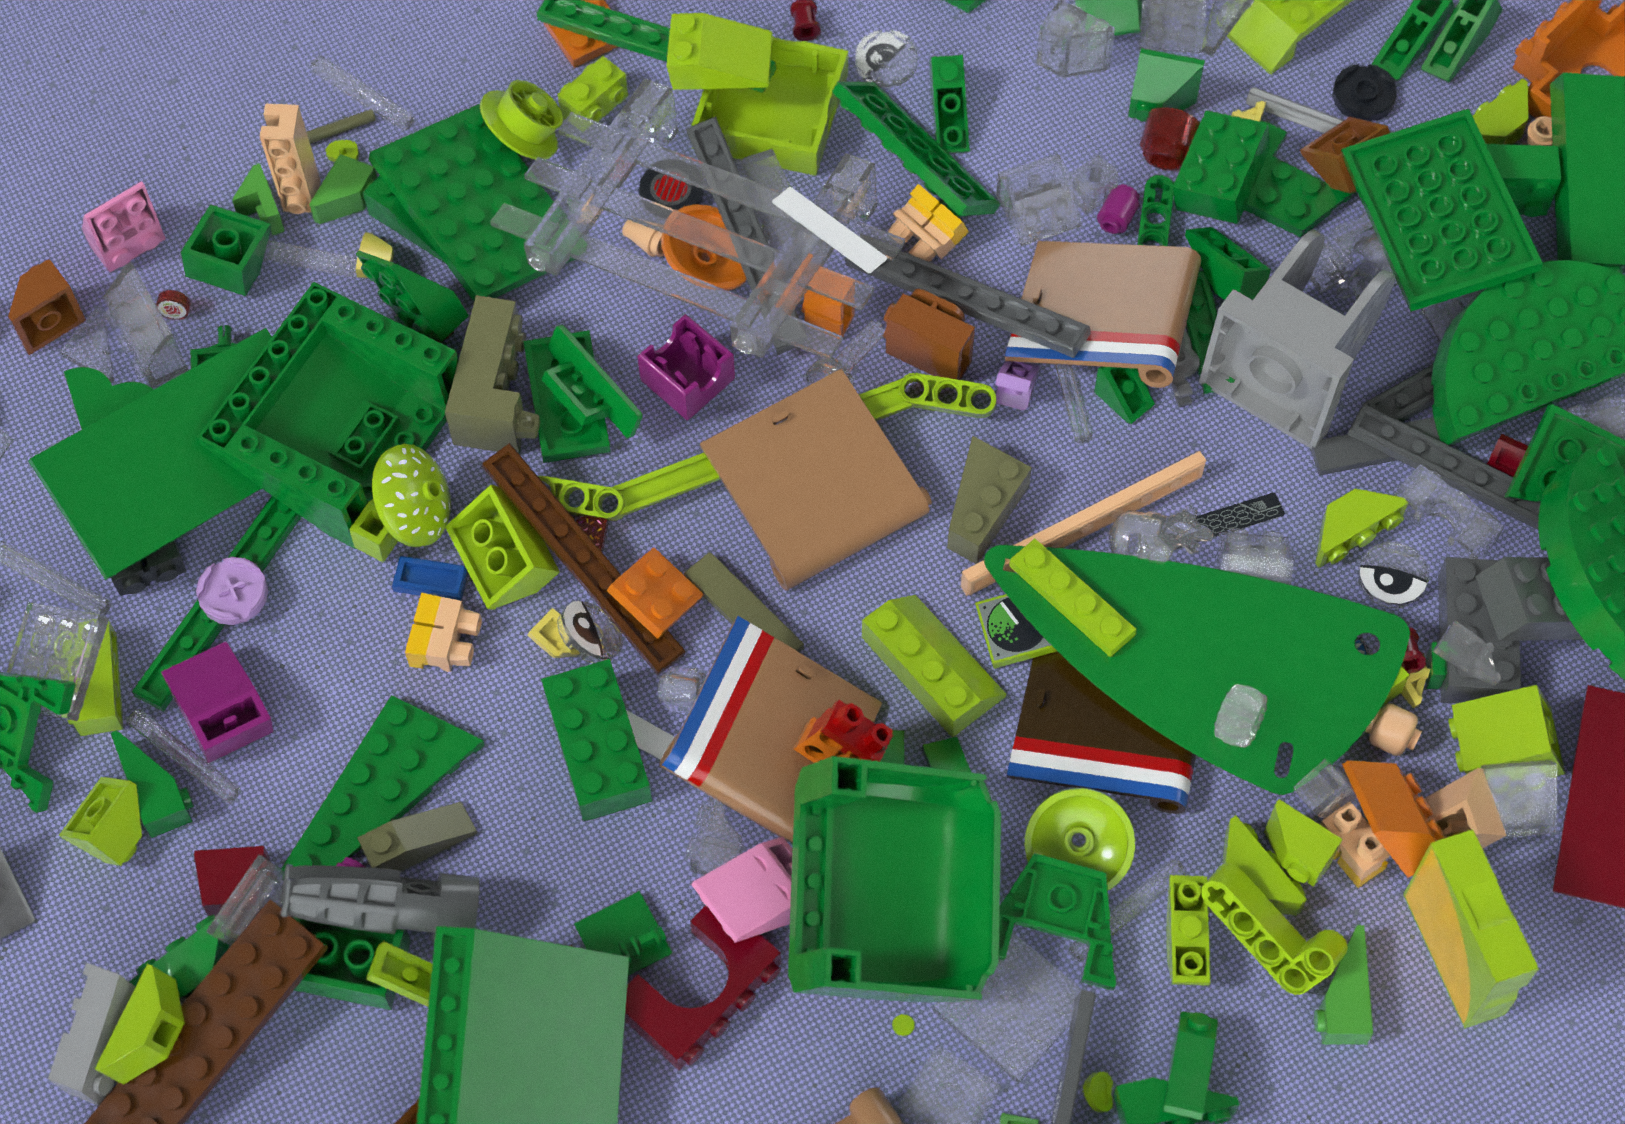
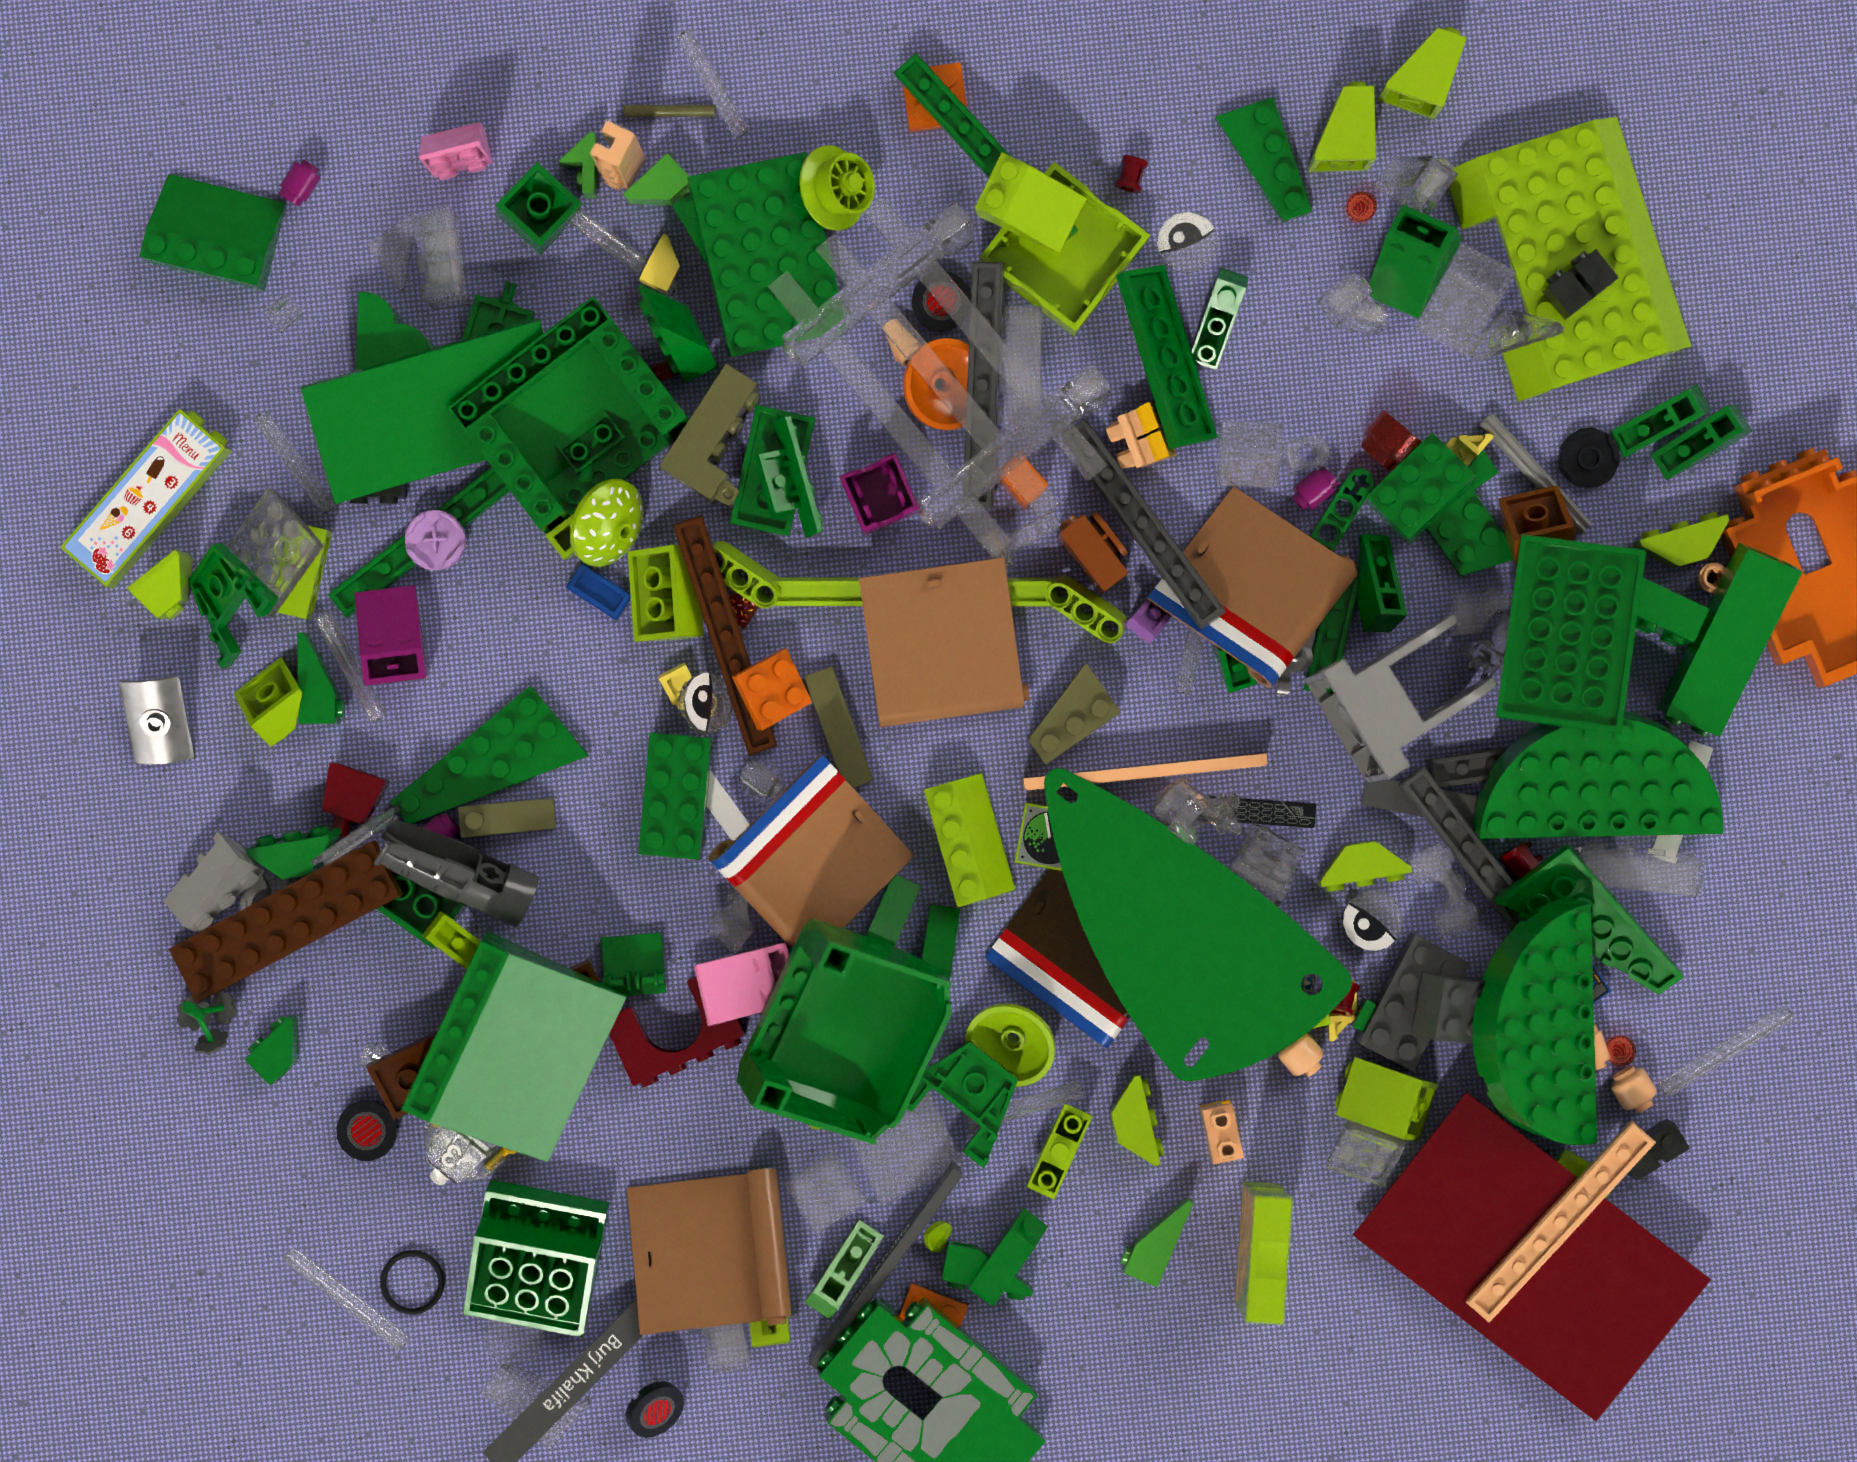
camera: 25 degrees right, 25 degrees up
(43, 307) = (364, 203): dark orange slope -> none
(144, 1029) = (247, 899): lime slope -> none
(173, 304) = (476, 240): tile -> none
(344, 147) = (675, 140): lime piece -> none
(437, 633) = (598, 640): light nougat hips -> none
(594, 91) = (911, 177): lime brick -> none
(829, 230) = (1042, 440): white sticker -> none
(844, 733) = (860, 896): red hips -> none
(1072, 597) = (1098, 844): lime plate -> none
(1164, 82) = (1408, 387): slope -> none
(1240, 715) = (1175, 1011): clear gear -> none
(1268, 935) = (1118, 1180): lime beam -> none
(1300, 843) = (1175, 1126): lime slope -> none
(1325, 789) = (1219, 1089): clear panel -> none
(1394, 811) = (1258, 1133): orange slope -> none
(1467, 806) = (1307, 1151): light nougat slope -> none
(1468, 653) = (1385, 1028): clear slope -> none

